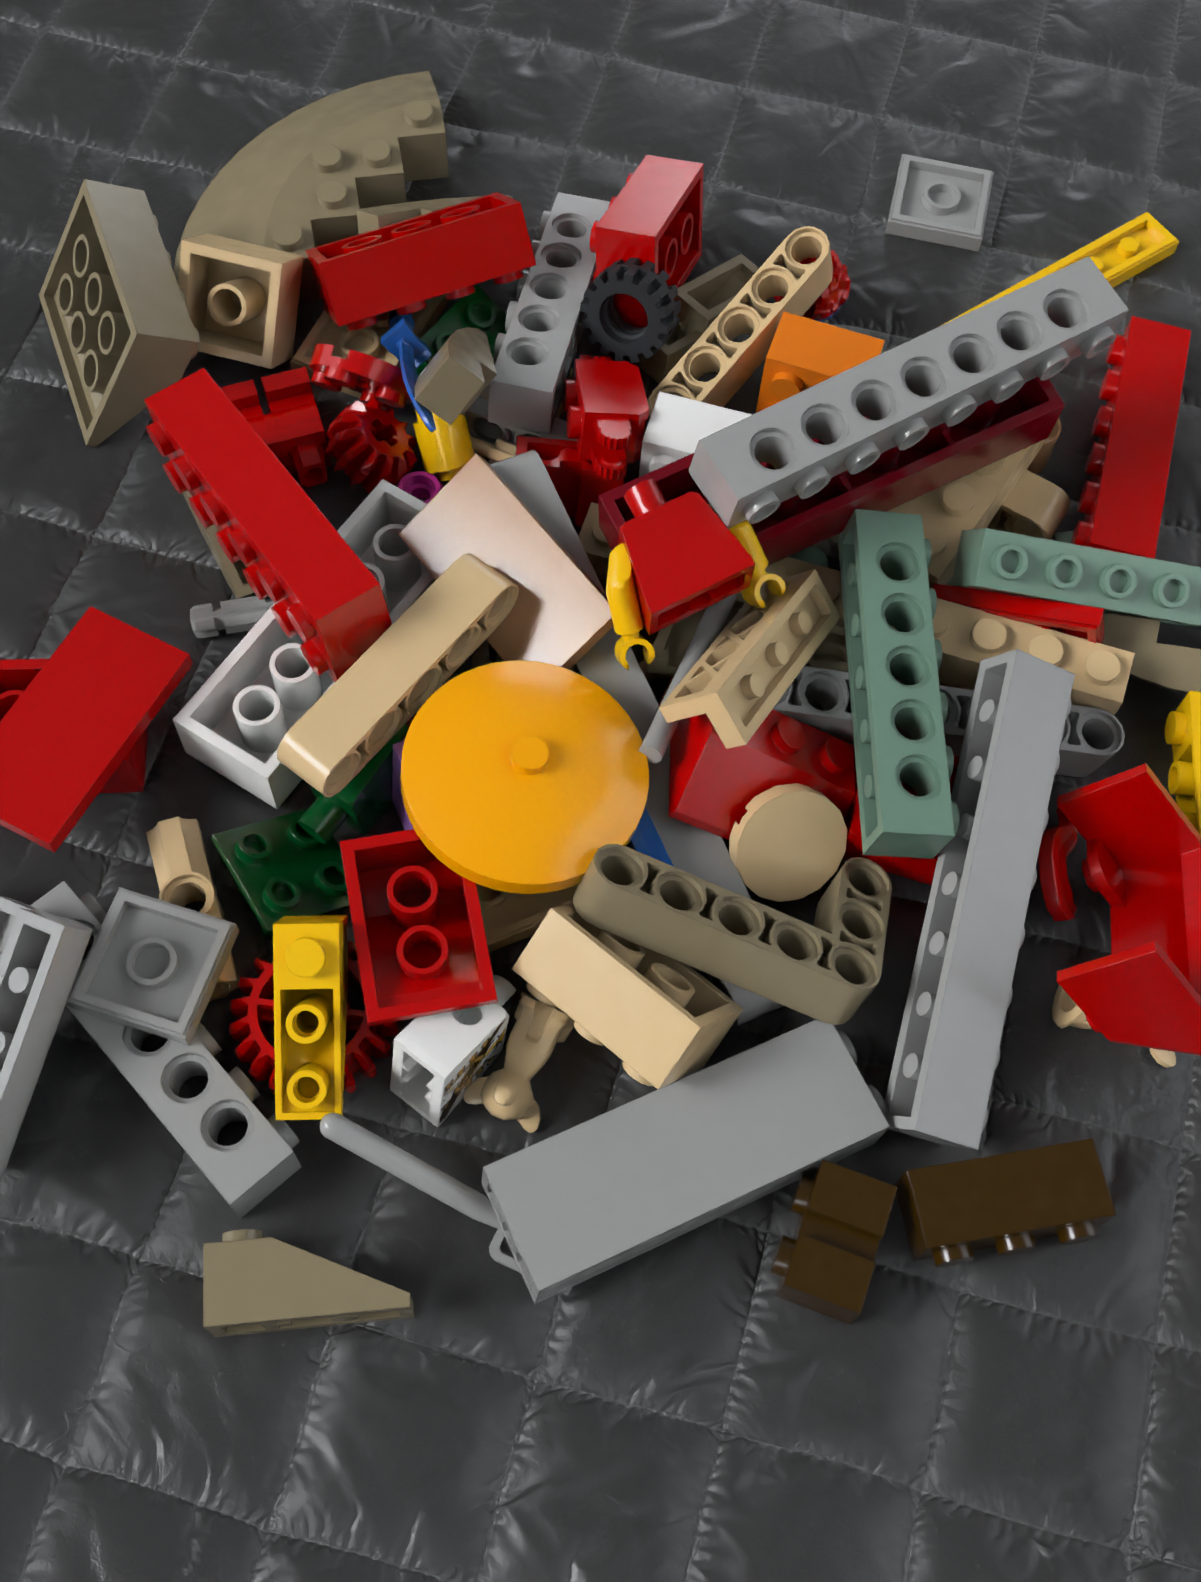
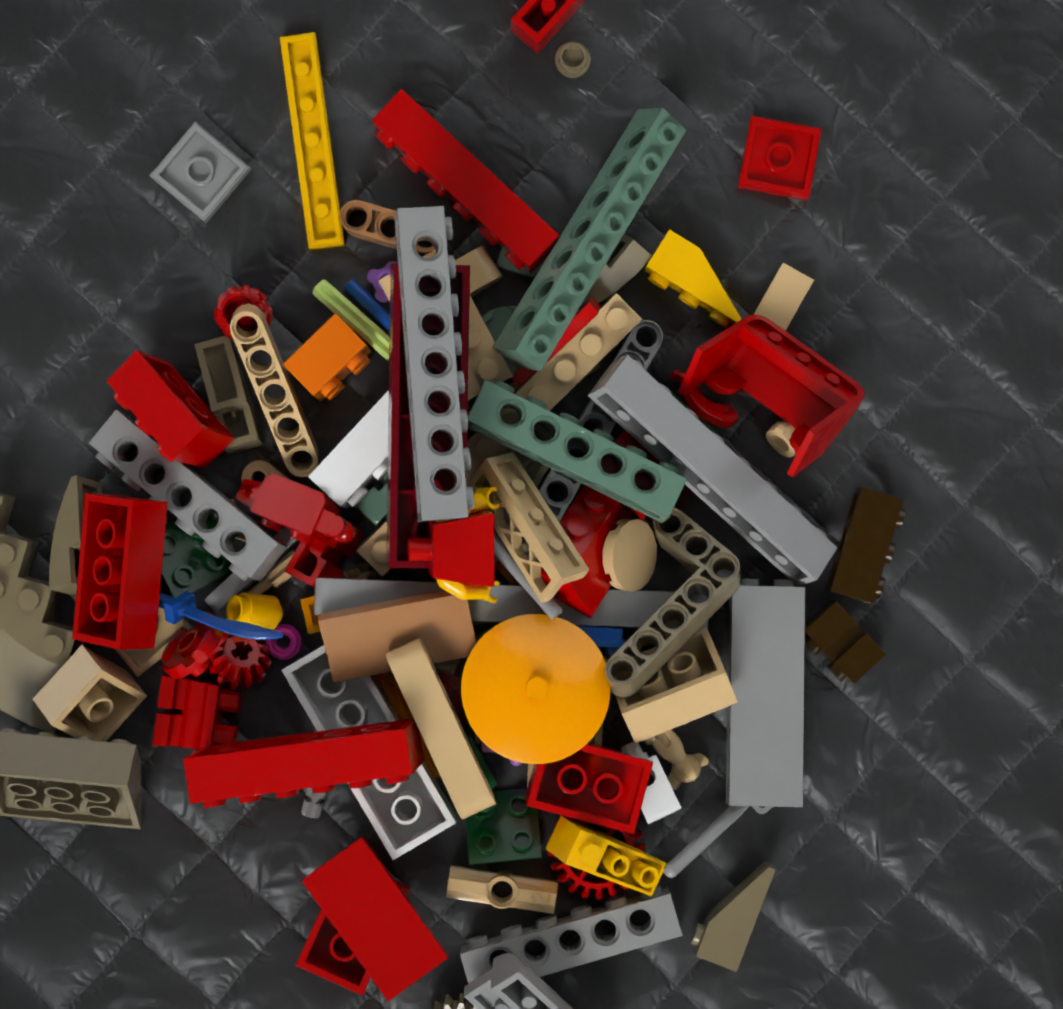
camera: 60 degrees left, 25 degrees up
(153, 966) = (537, 925): light grey tile -> none
(456, 374) = (236, 596): dark tan slope -> none
(611, 329) = (228, 456): black tyre -> none

